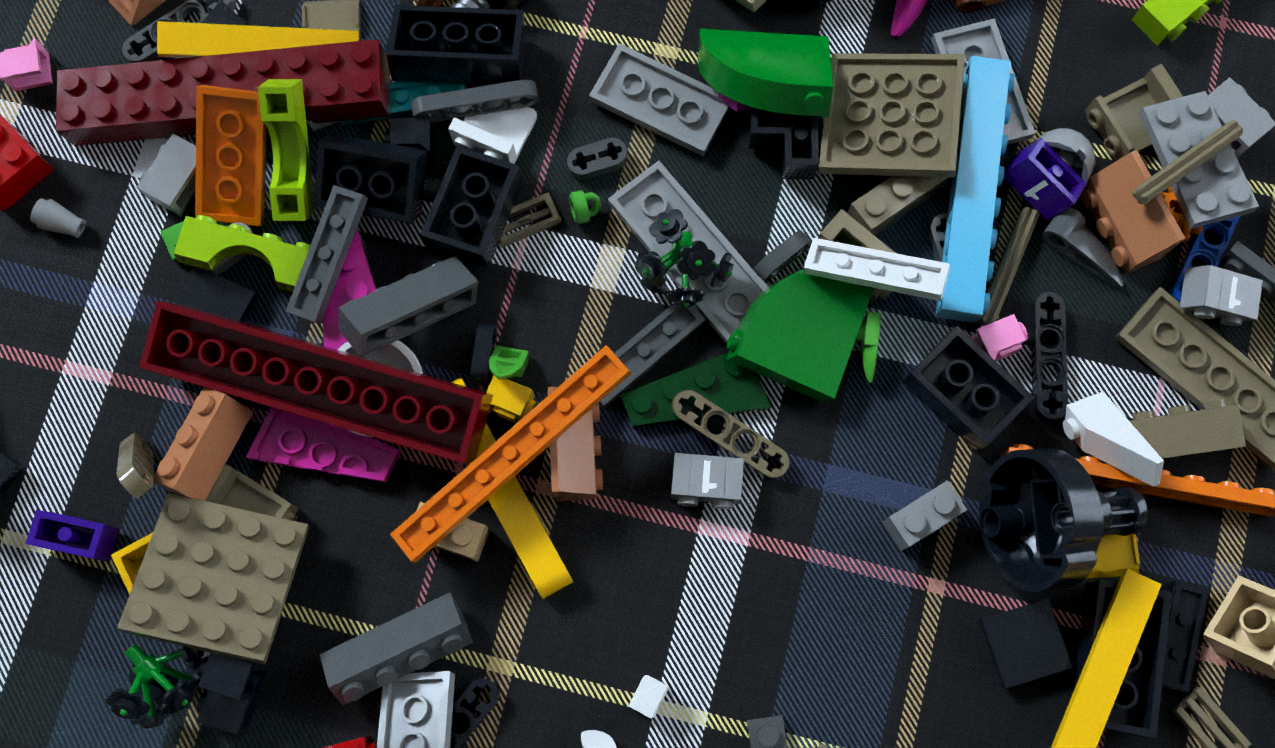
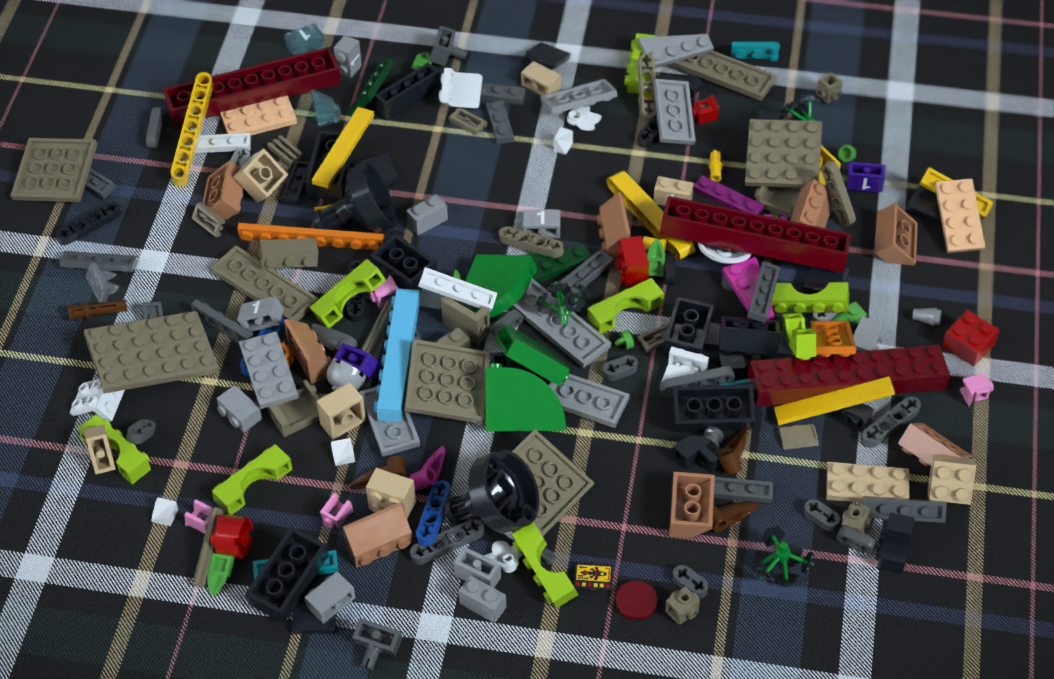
camera: 175 degrees right, 25 degrees down
(61, 394) = (896, 236): none -> nougat slope
(93, 614) = (846, 153): none -> bright green tile
(346, 525) = (726, 196): none -> magenta plate
(355, 605) = (715, 166): none -> yellow axle
(395, 649) = (690, 146): dark grey brick -> none
(407, 305) = (714, 272): dark grey brick -> none
(510, 454) = (643, 203): orange plate -> none
(539, 296) = (644, 296): none -> lime arch
(547, 349) = (632, 261): none -> red brick
(751, 151) = (532, 355): none -> green brick
(1054, 32) = (342, 451): none -> white slope
(1067, 84) = (341, 410): none -> tan brick
(1096, 302) = (362, 279): none -> lime arch
(1110, 436) = (331, 248): white slope -> none
(1187, 162) = (280, 352): dark tan axle -> none

